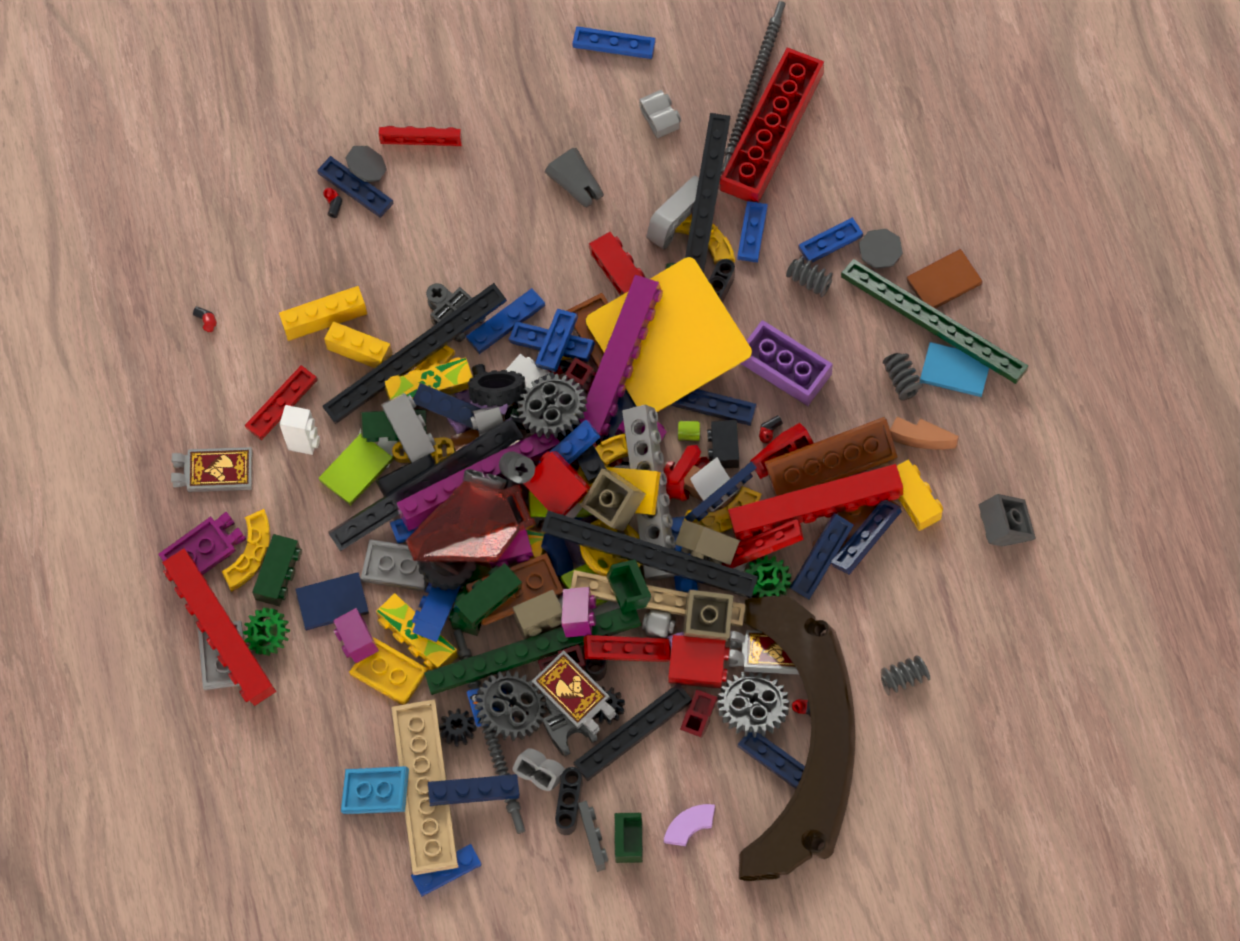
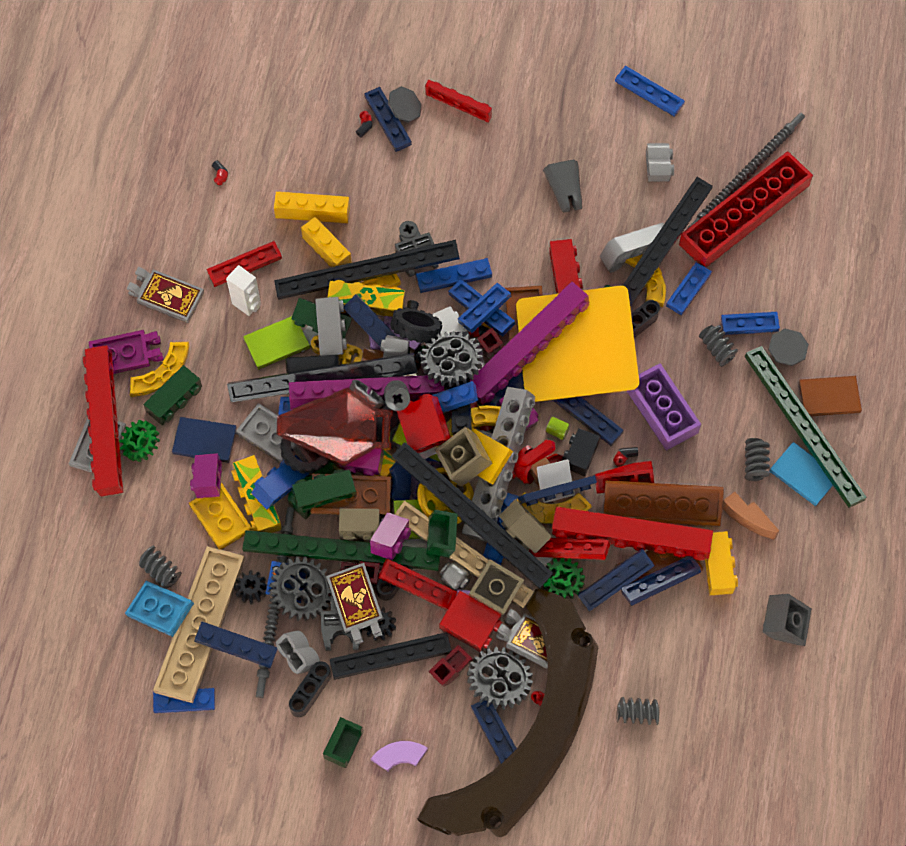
camera: 20 degrees right, 0 degrees up
(353, 750) = (158, 569): none -> dark grey piece
(593, 835) = (315, 727): dark grey plate -> none

